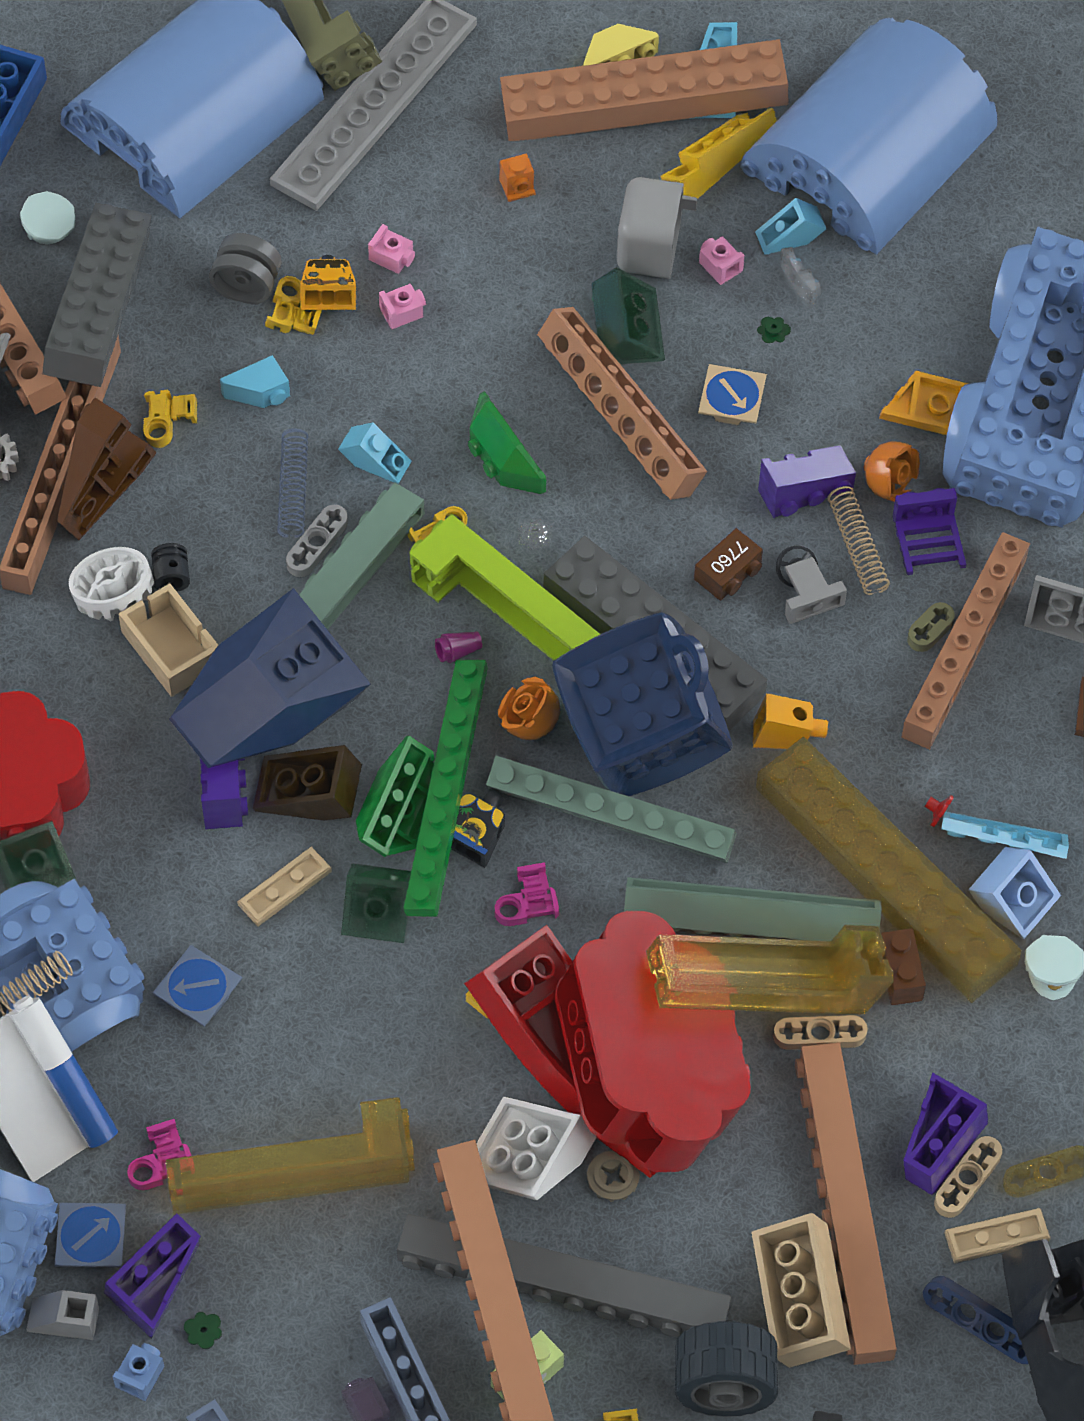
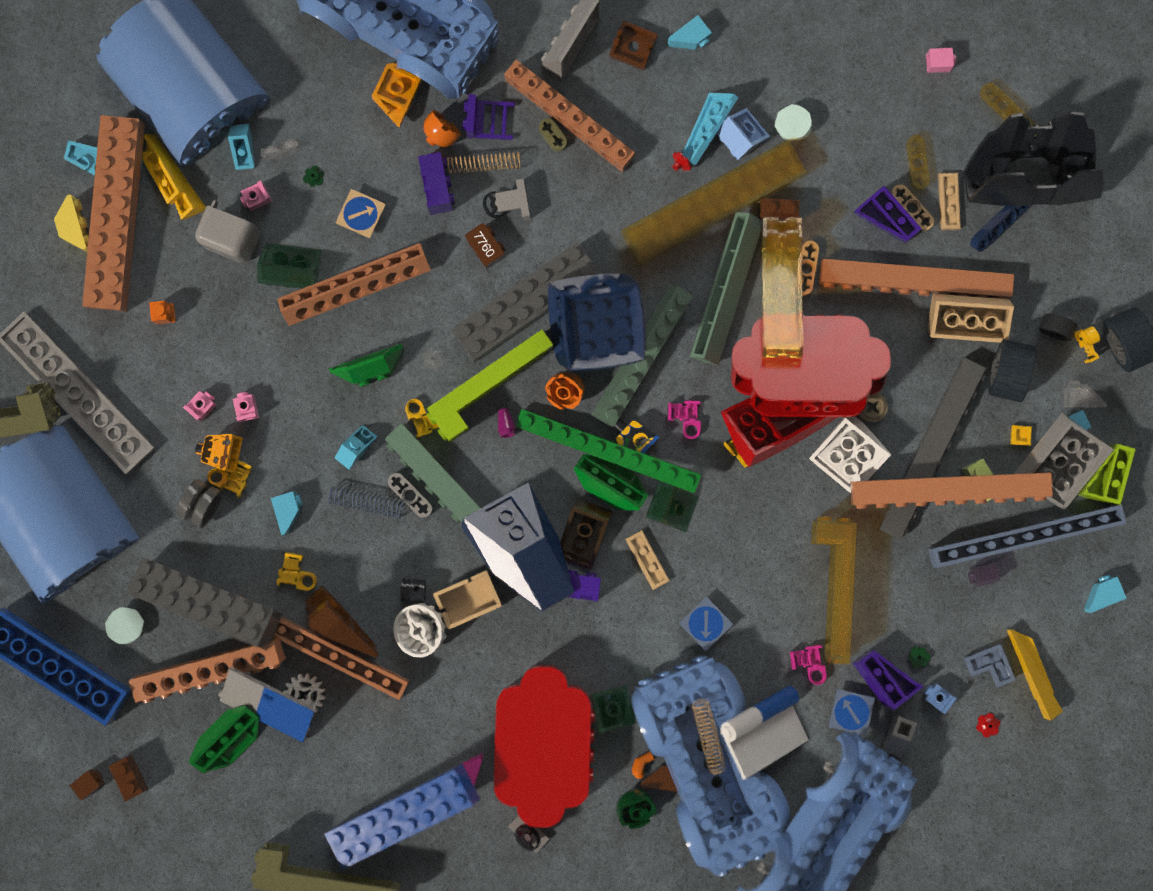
camera: 75 degrees left, 25 degrees up
(784, 722) = (606, 238): light orange torso -> none

